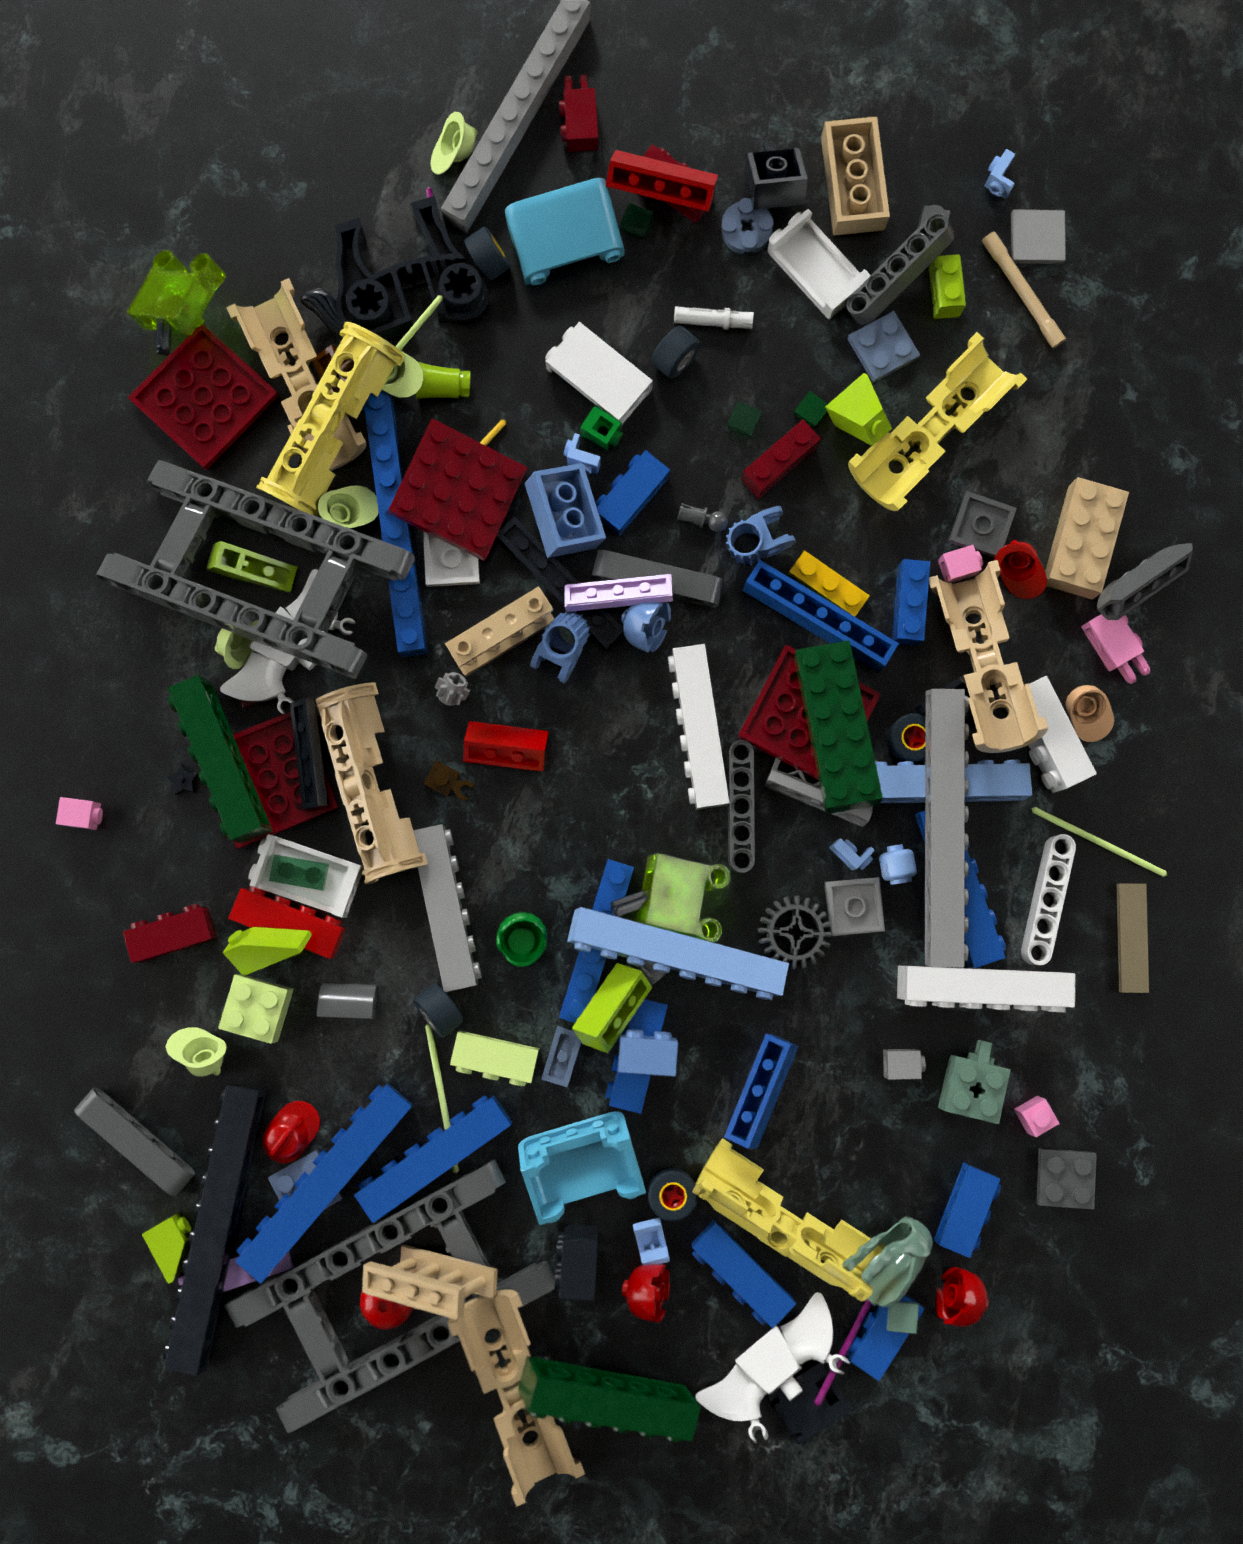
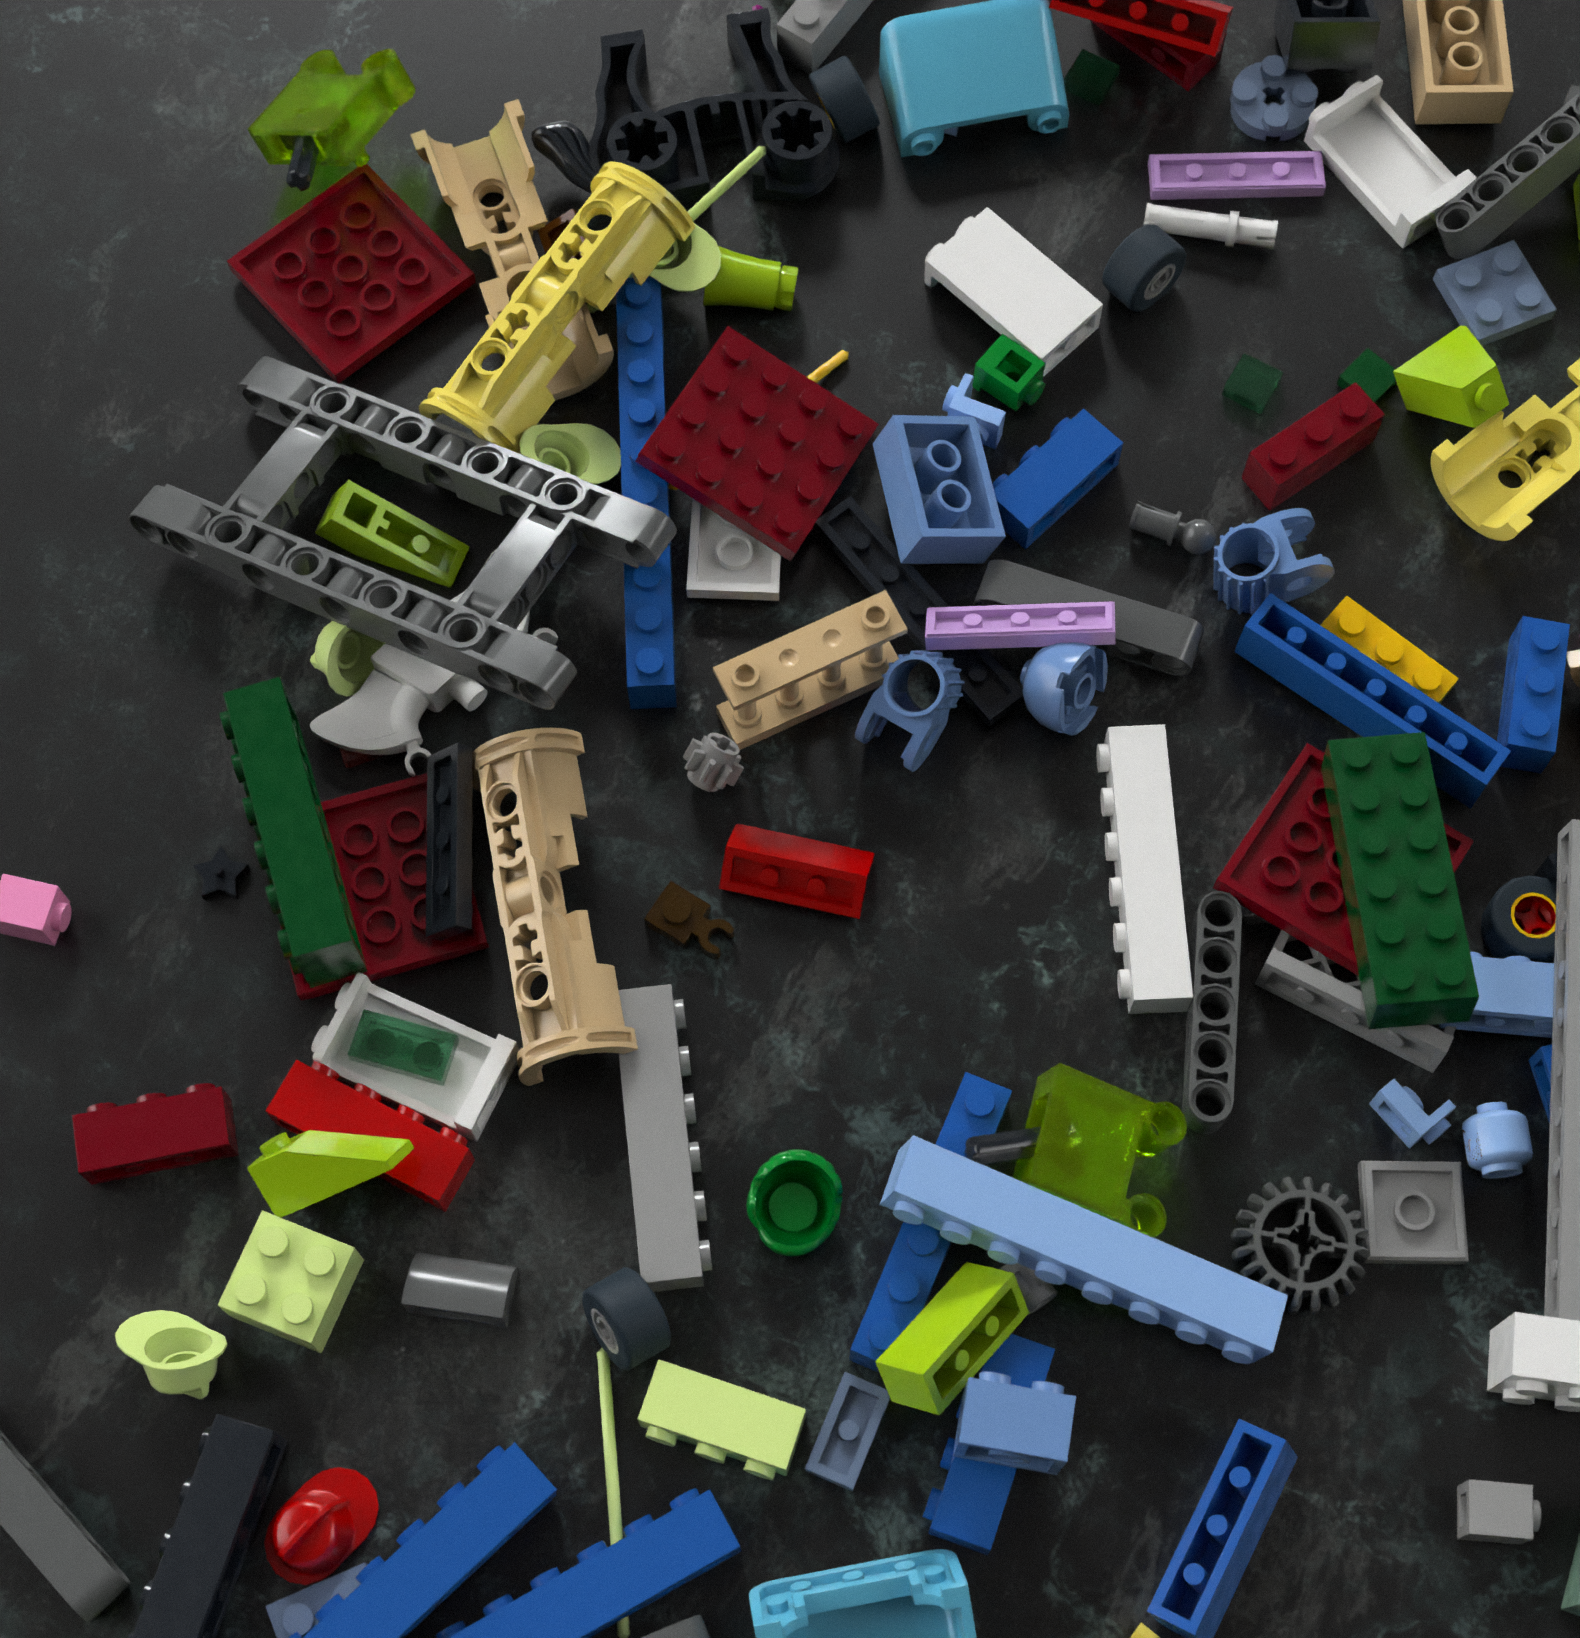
camera: 10 degrees right, 15 degrees down
(727, 280) = (1236, 175): none -> lavender tile

